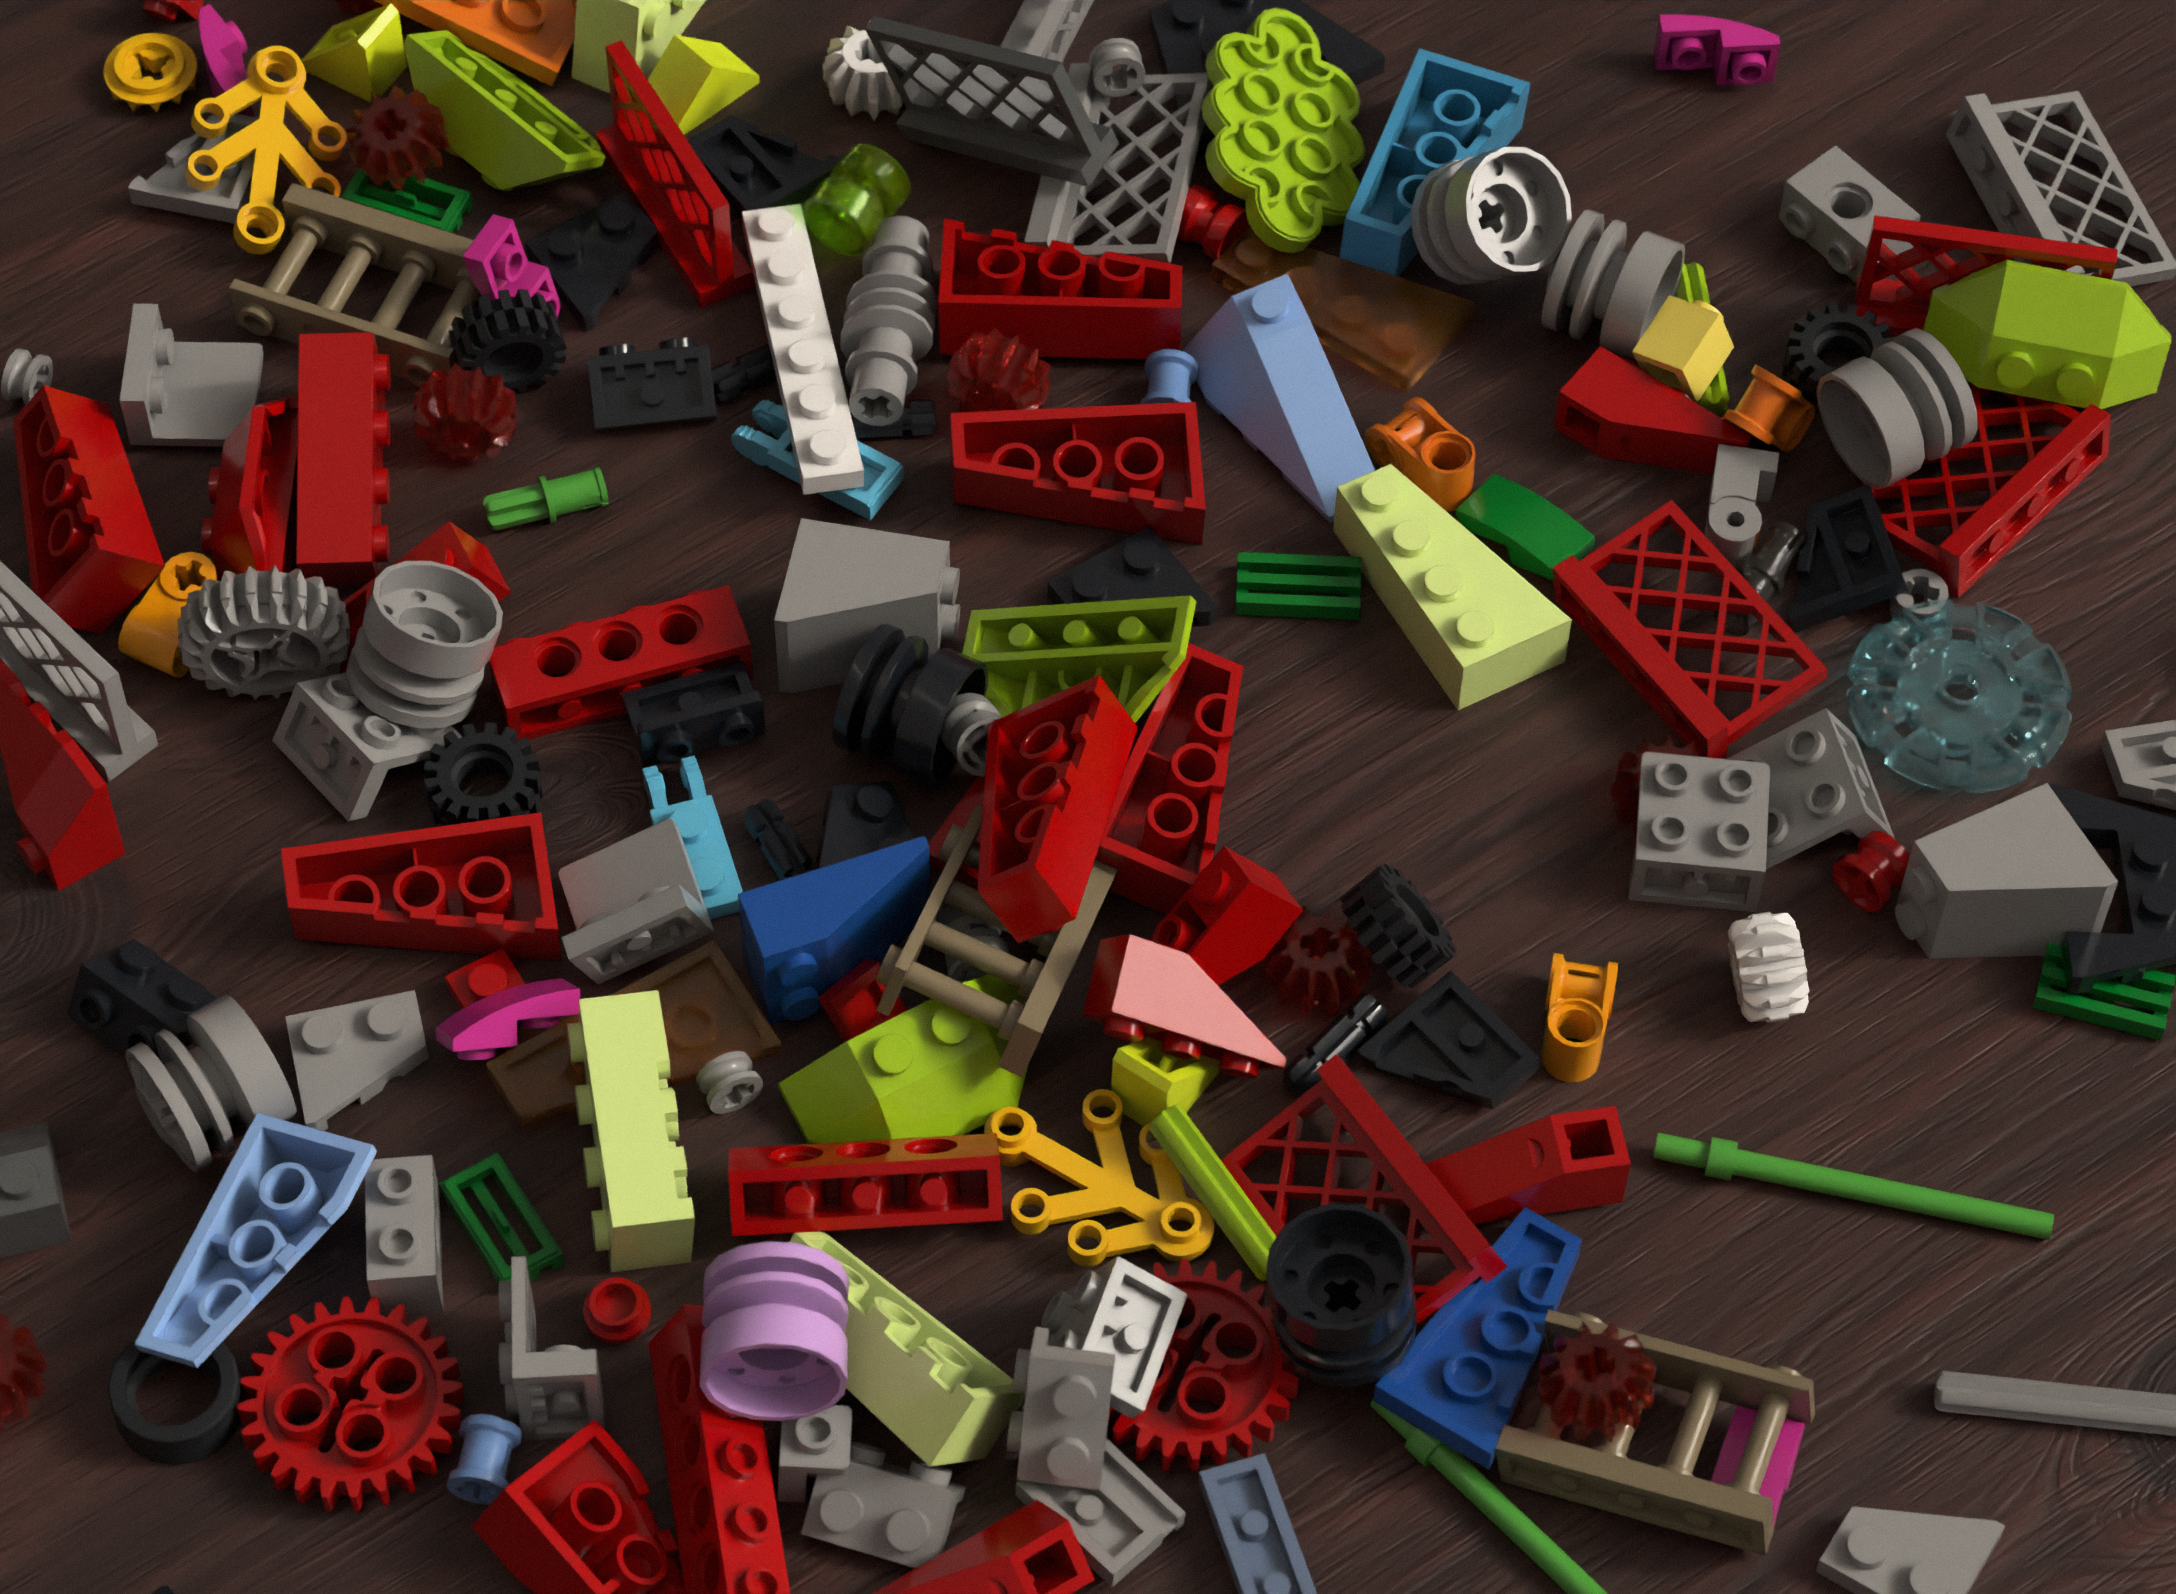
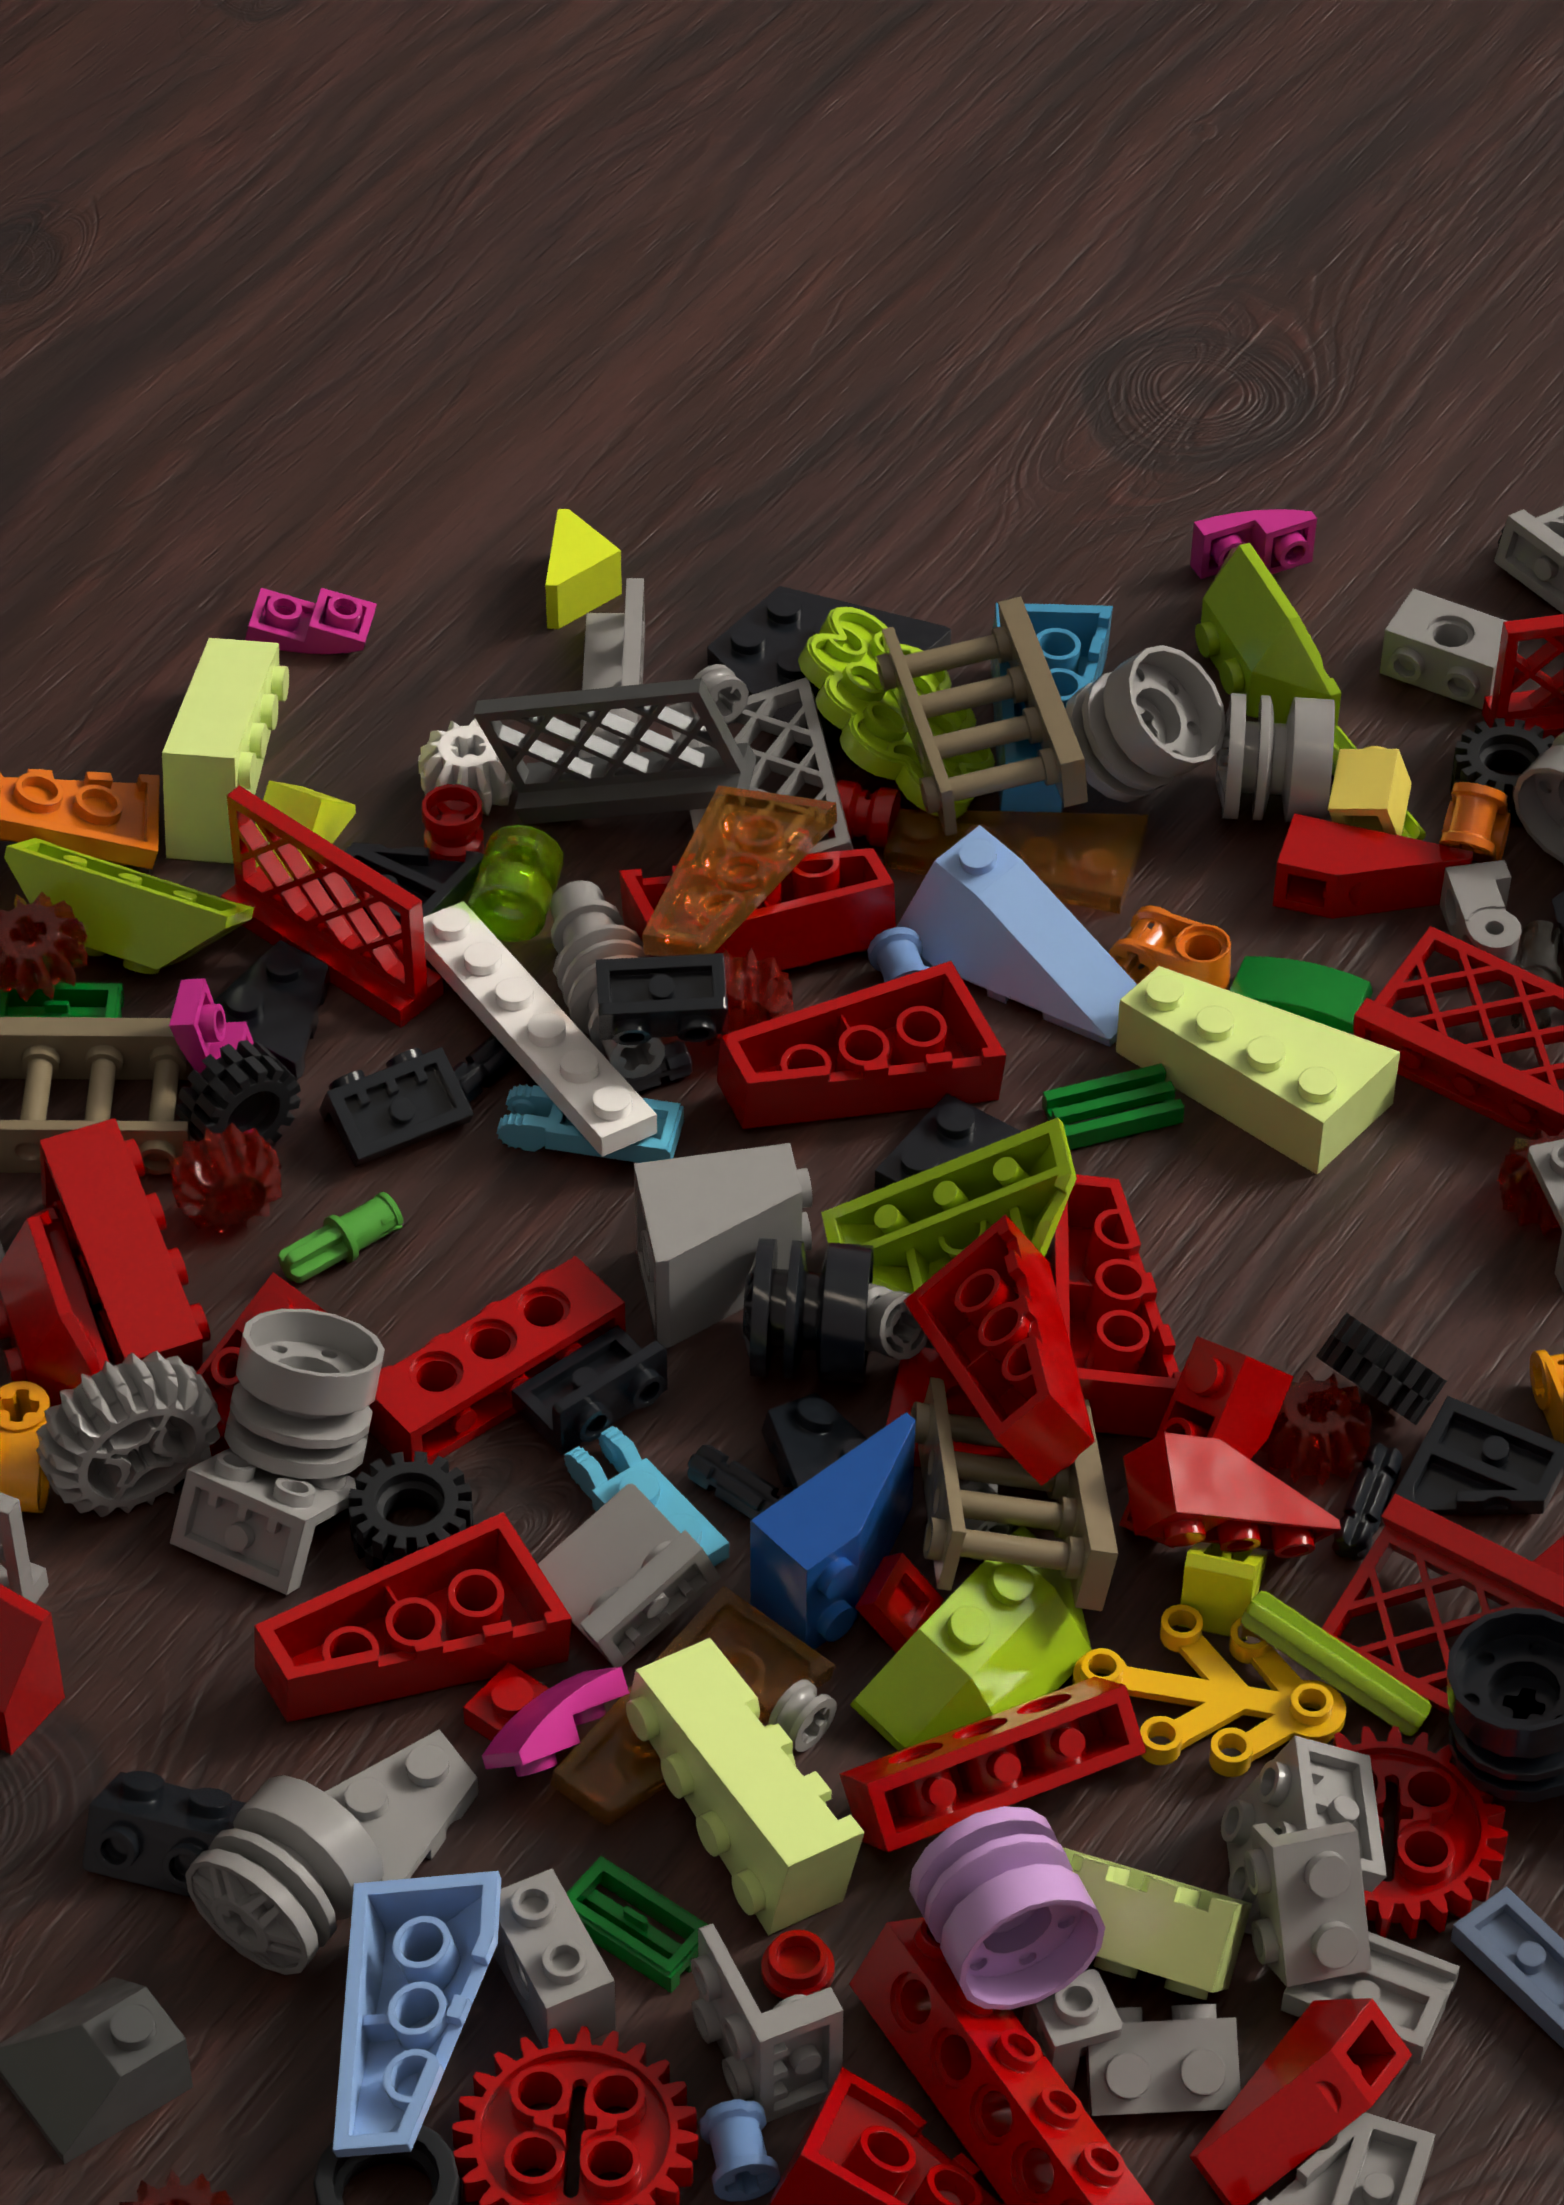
camera: 20 degrees left, 10 degrees down
(829, 121) = (452, 822): none -> red wheel
(906, 362) = (662, 998): none -> black bracket
(1037, 246) = (732, 865): none -> clear orange wing
(1388, 188) = (1026, 681): none -> dark tan fence
(1665, 158) = (1260, 638): none -> lime wedge

